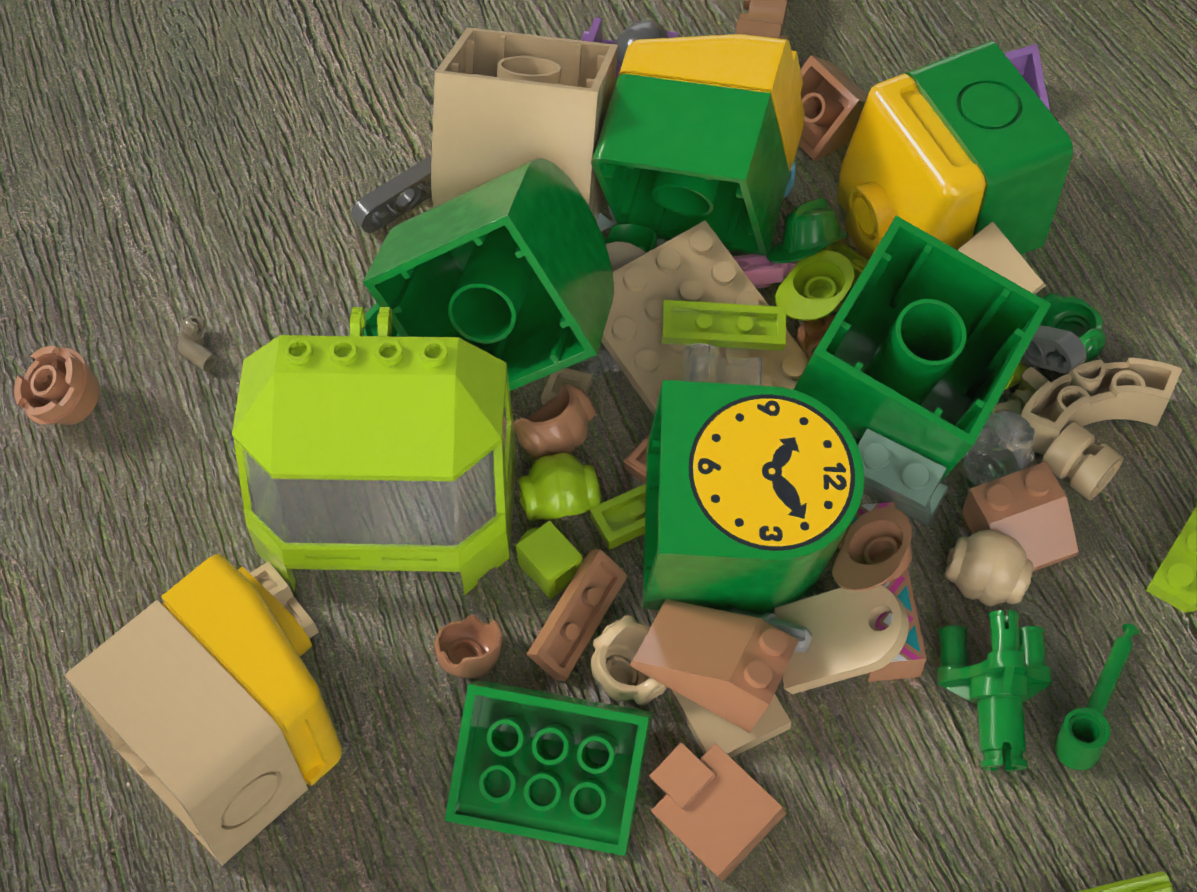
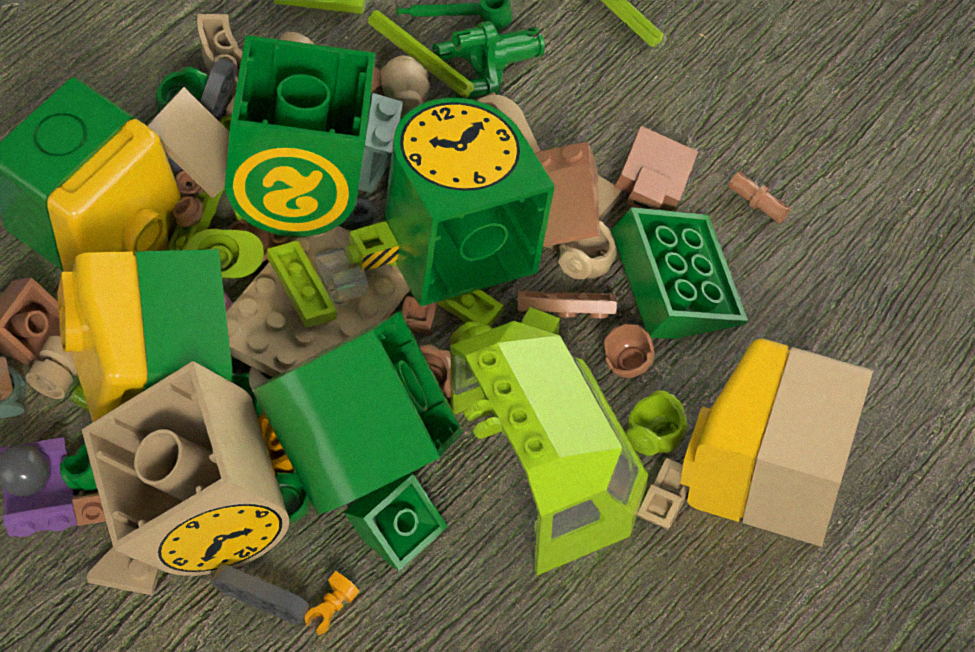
camera: 120 degrees left, 0 degrees up
(354, 624) = (657, 424): none -> lime hair
(358, 254) = (342, 591): none -> light orange piece
(1035, 606) = (421, 53): none -> lime axle

